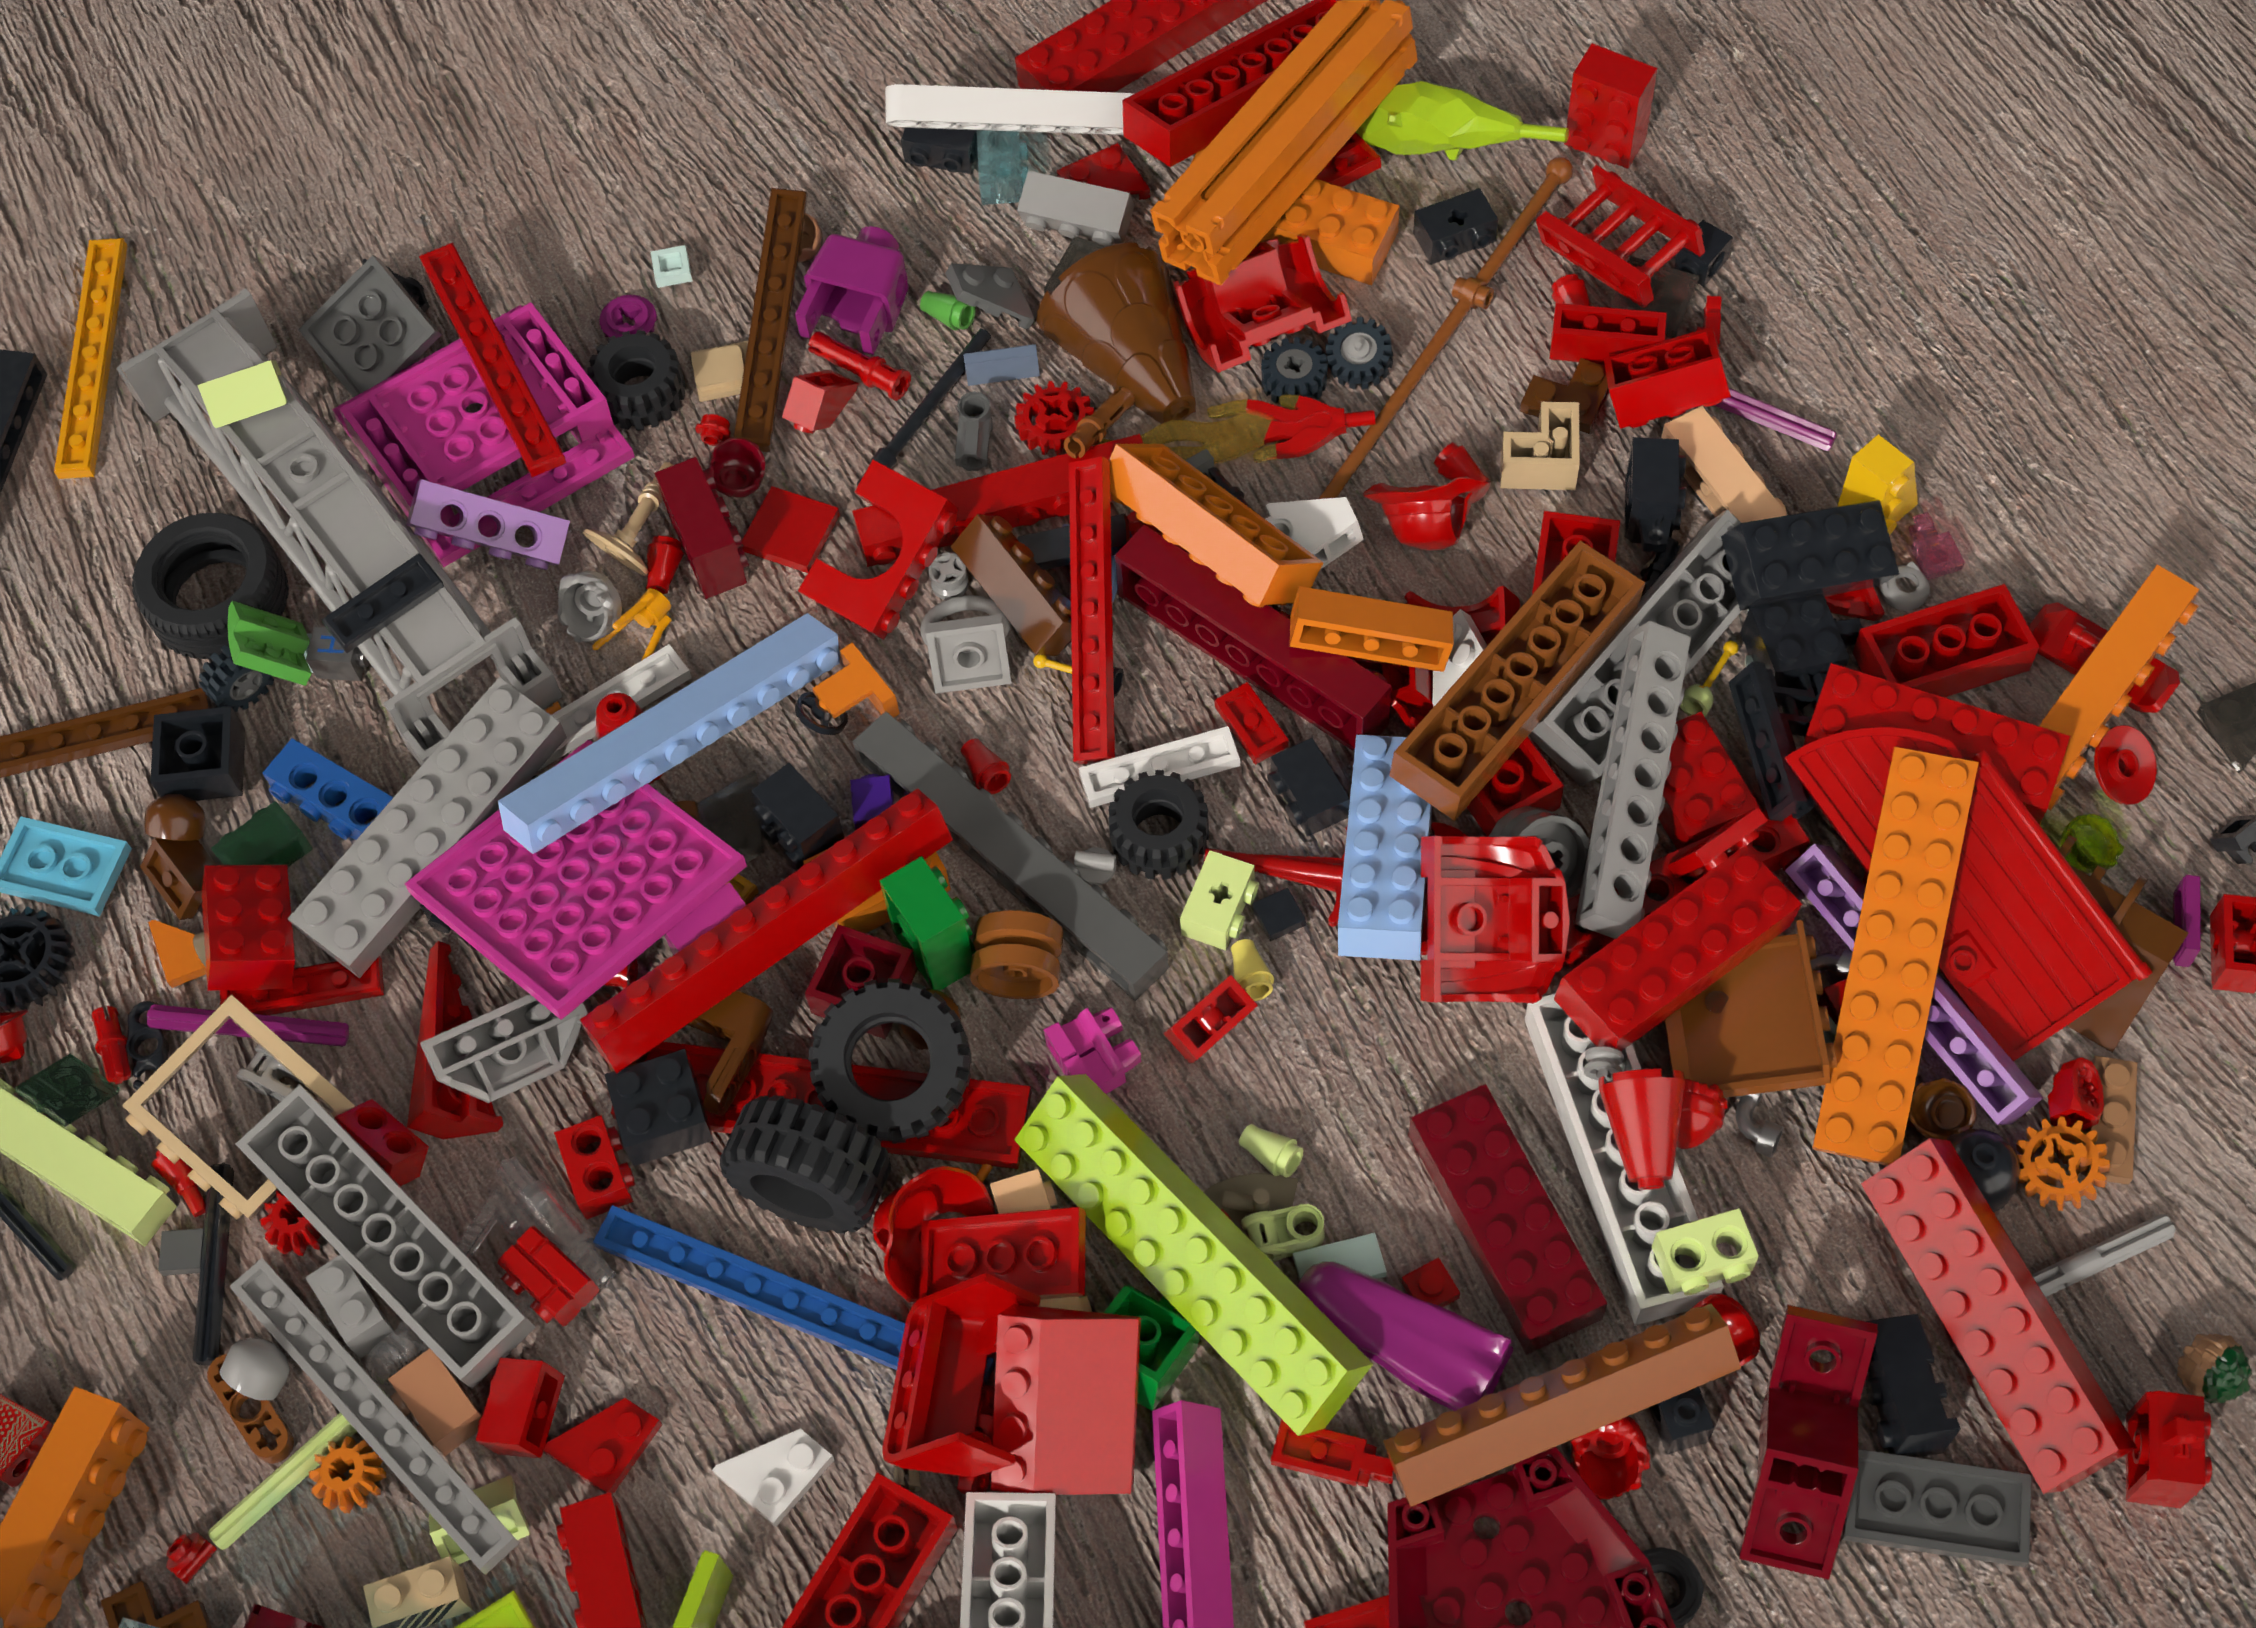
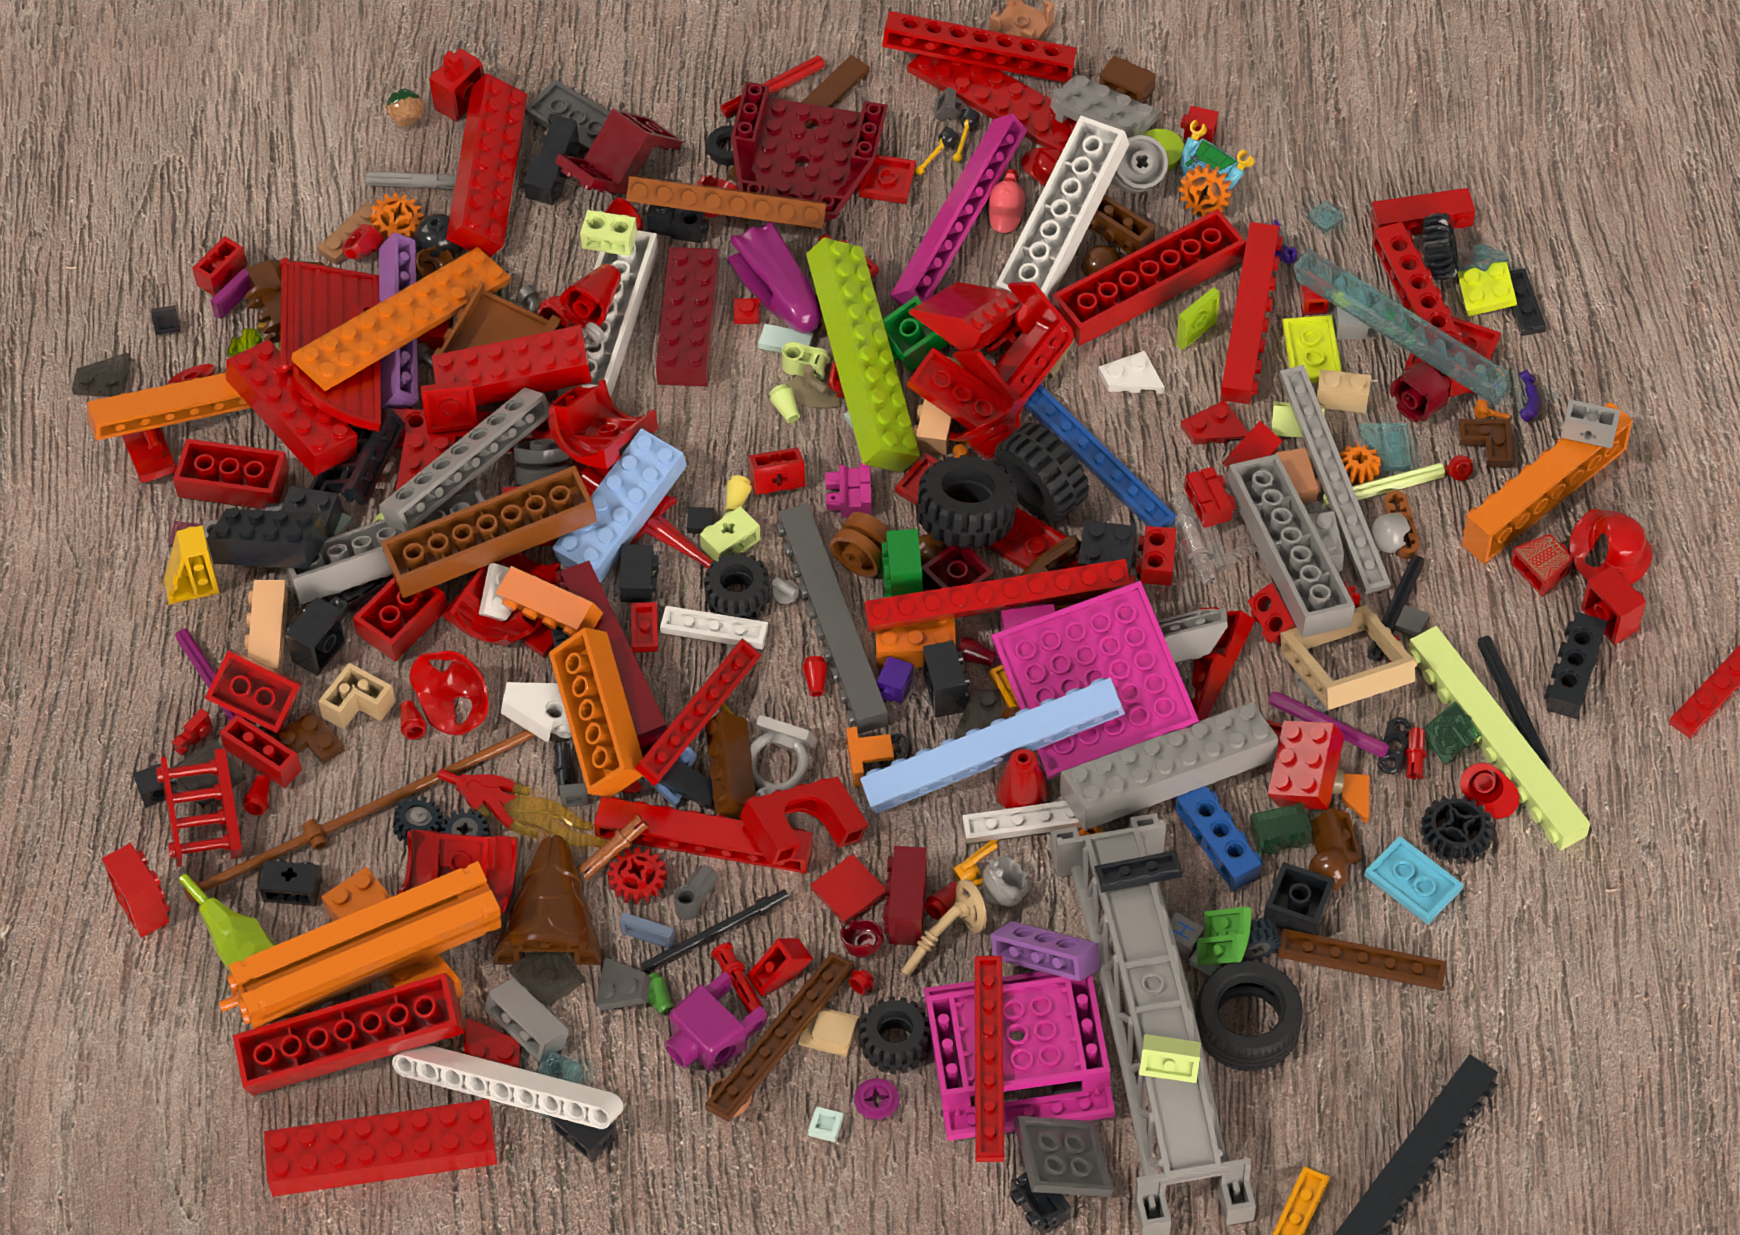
camera: 155 degrees left, 5 degrees down
(313, 1541) = (1390, 442): none -> clear light blue wing

